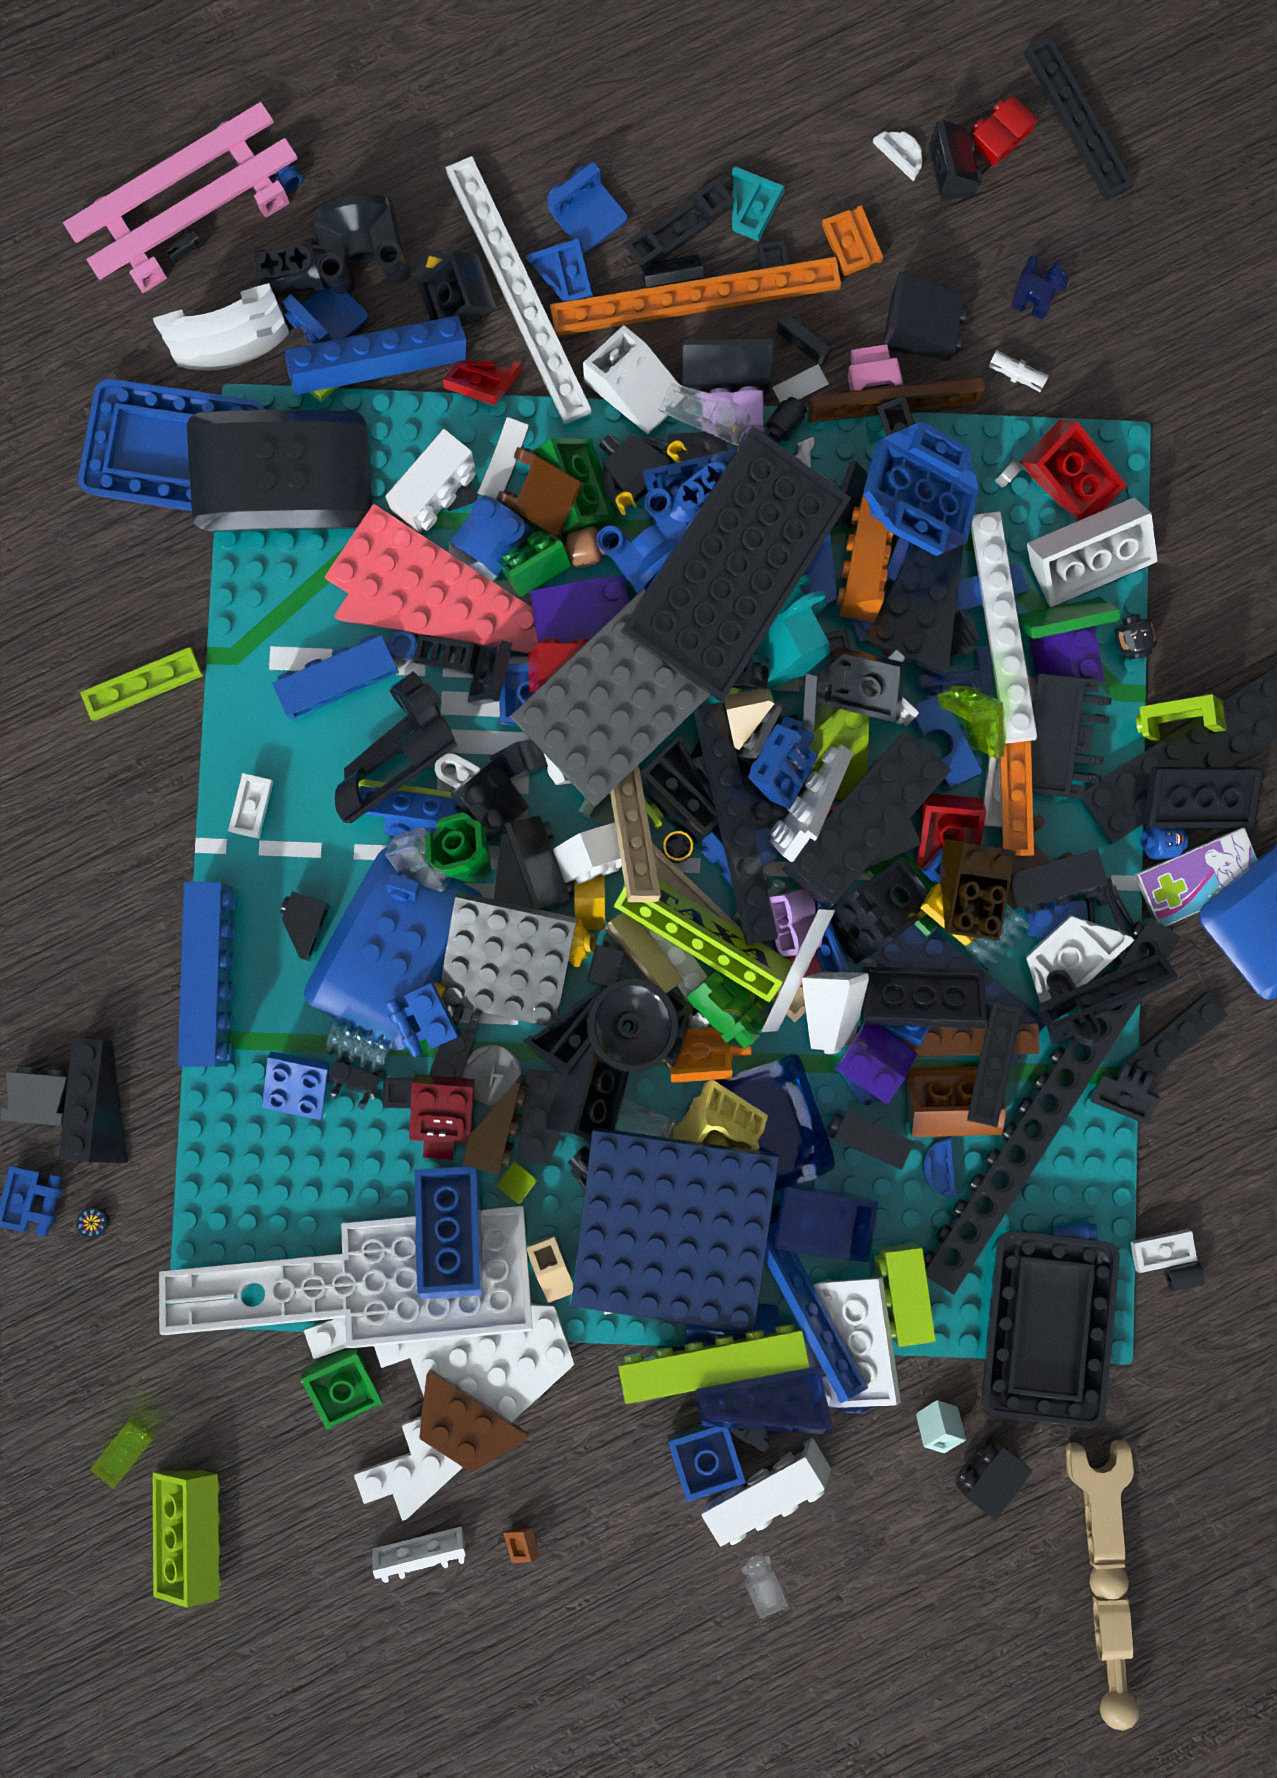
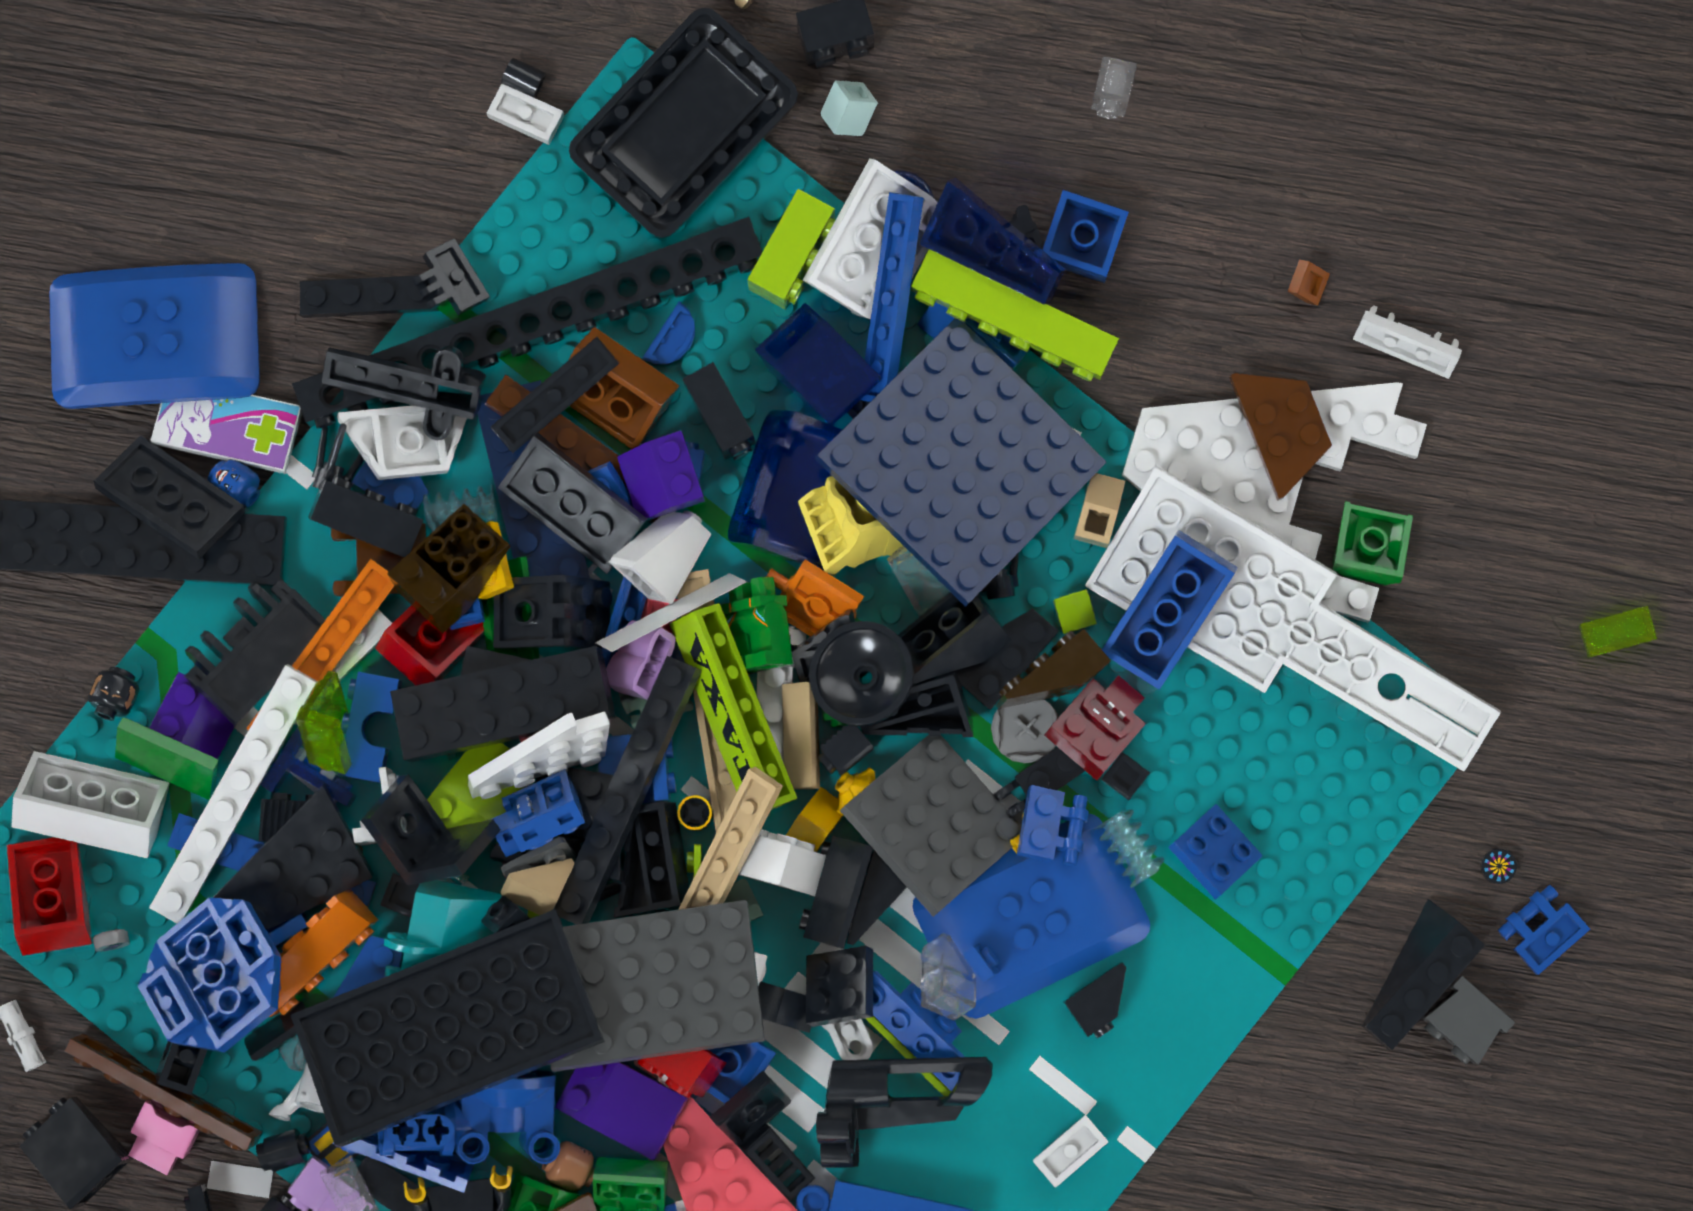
camera: 135 degrees left, 0 degrees up
(186, 1537) = (1611, 514): lime slope -> none
(206, 974) = (1225, 1015): blue brick -> none
(355, 1080) = (1157, 816): black piece -> none
(459, 848) = (902, 960): green cone -> none
(768, 1495) = (1051, 163): white wedge -> none
(1077, 1230) = (589, 189): blue cone -> none
(1207, 706) = (104, 566): lime panel -> none

